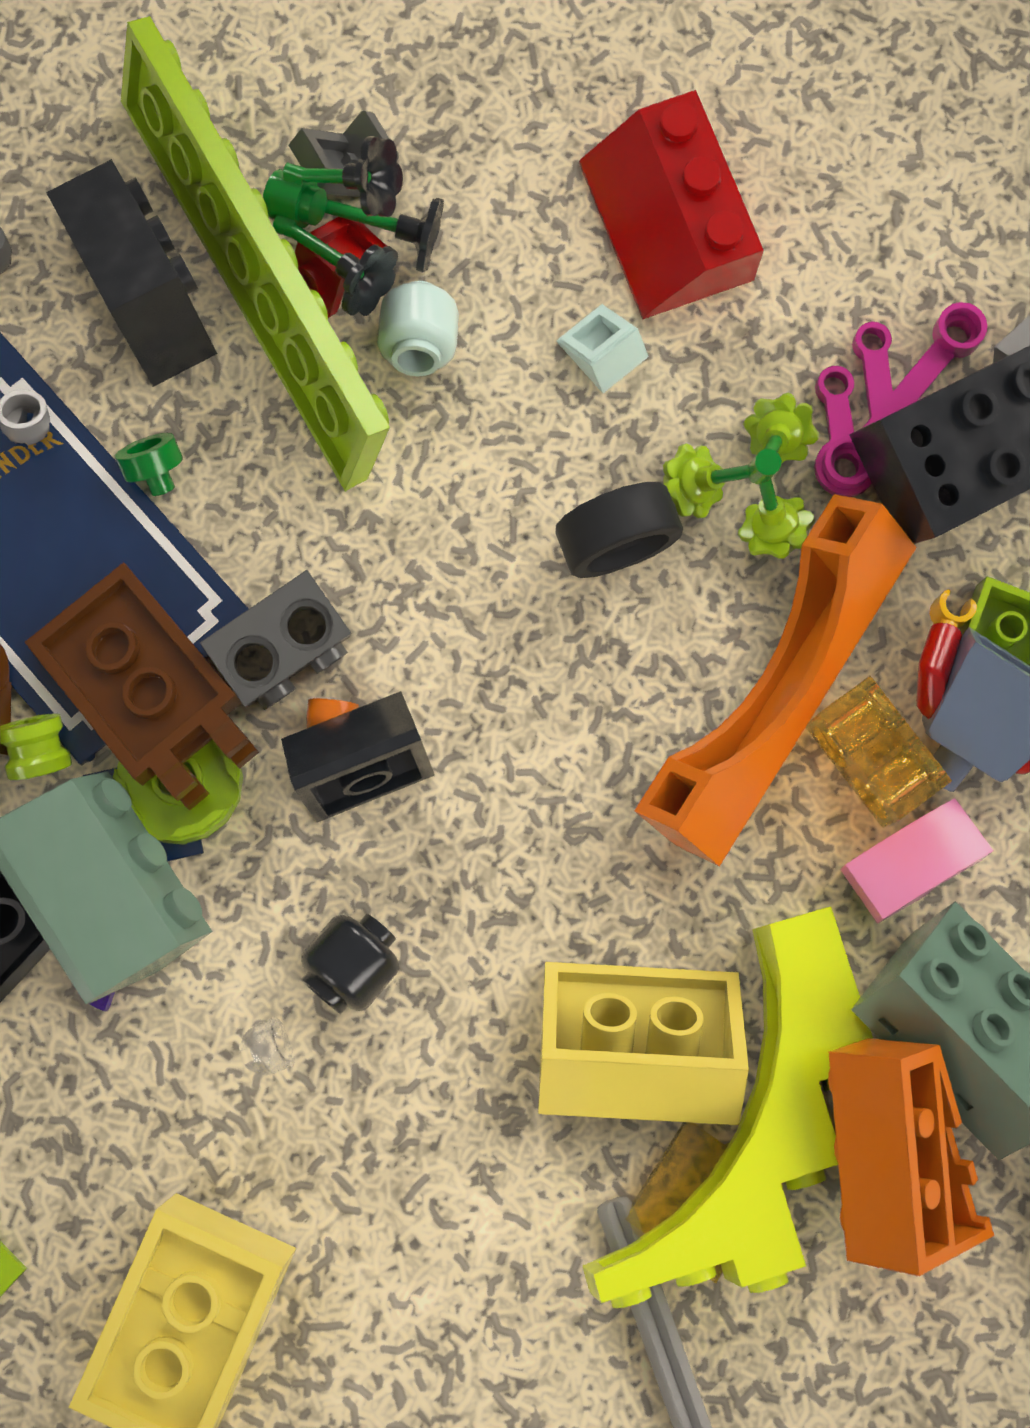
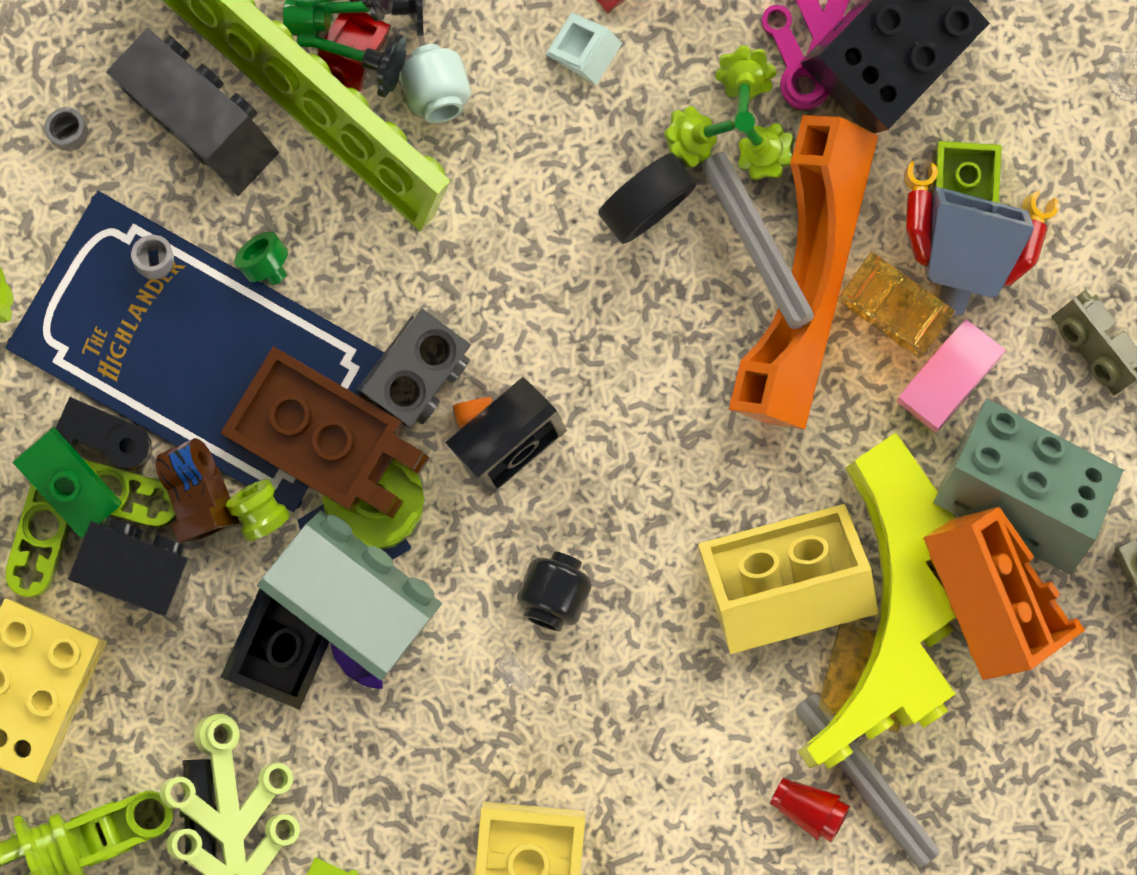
camera: 20 degrees left, 5 degrees up
(576, 1344) = (811, 808): none -> red cone
(735, 626) = (757, 240): none -> light grey axle

